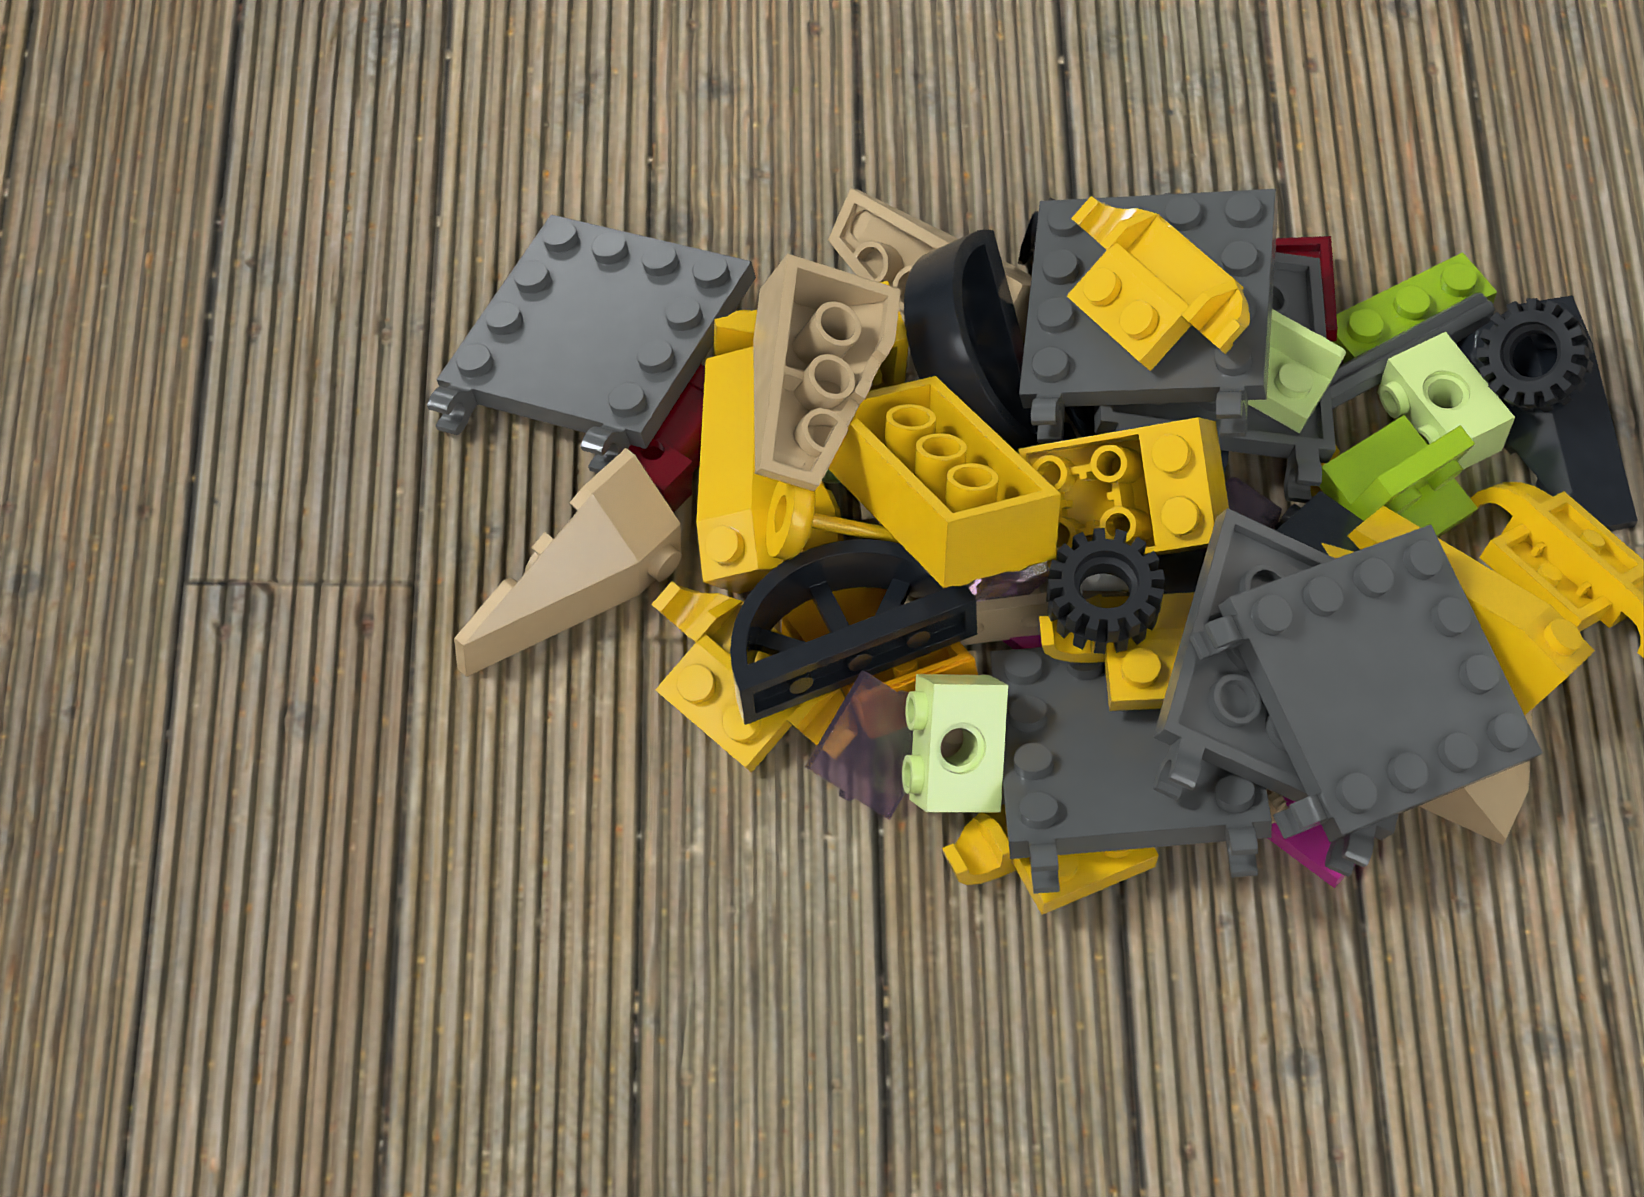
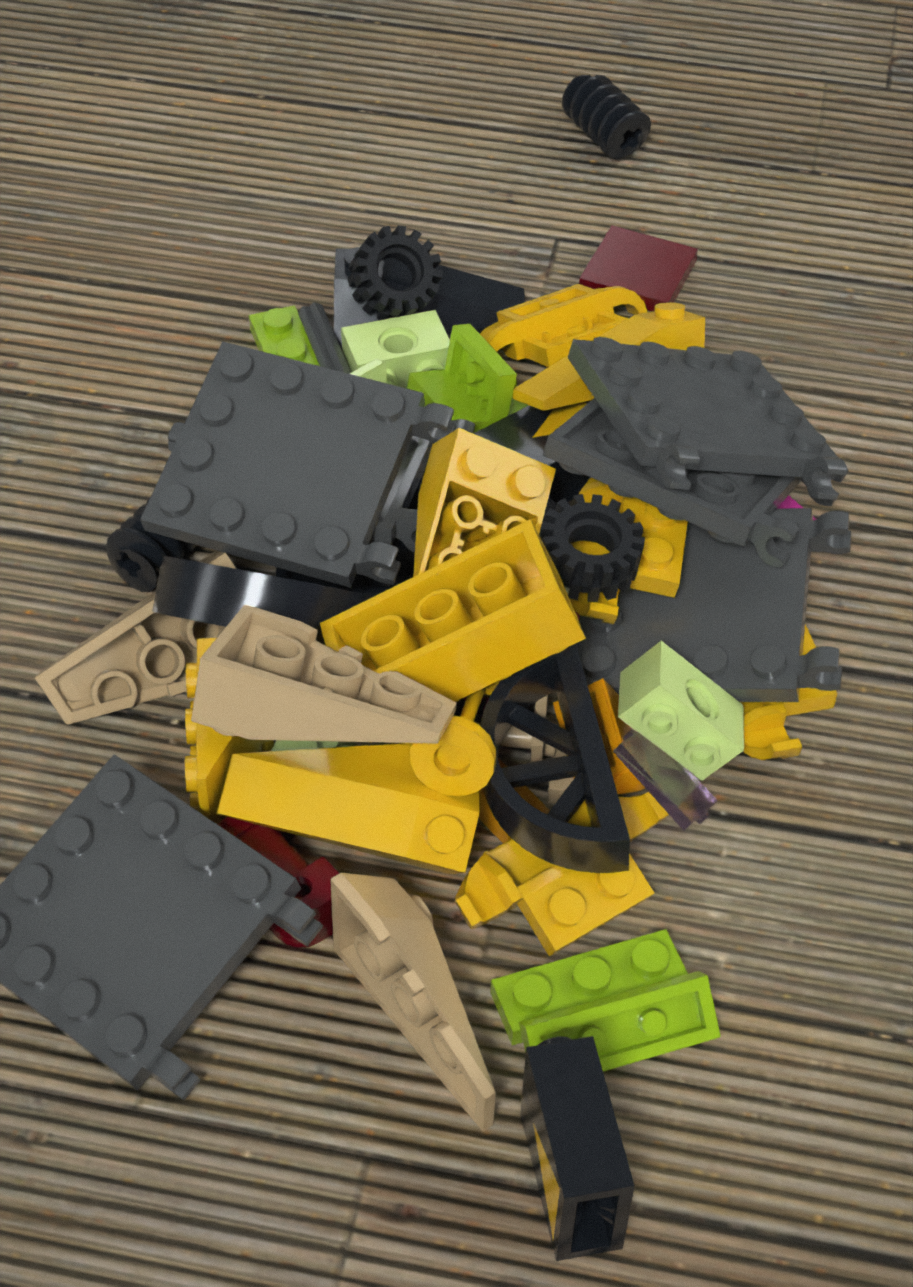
camera: 75 degrees left, 10 degrees down
(420, 714) = (575, 1148): none -> black brick
(573, 754) = (636, 1021): none -> lime plate
(628, 730) = (584, 979): none -> lime plate
(1154, 285) = (303, 434): yellow plate -> none

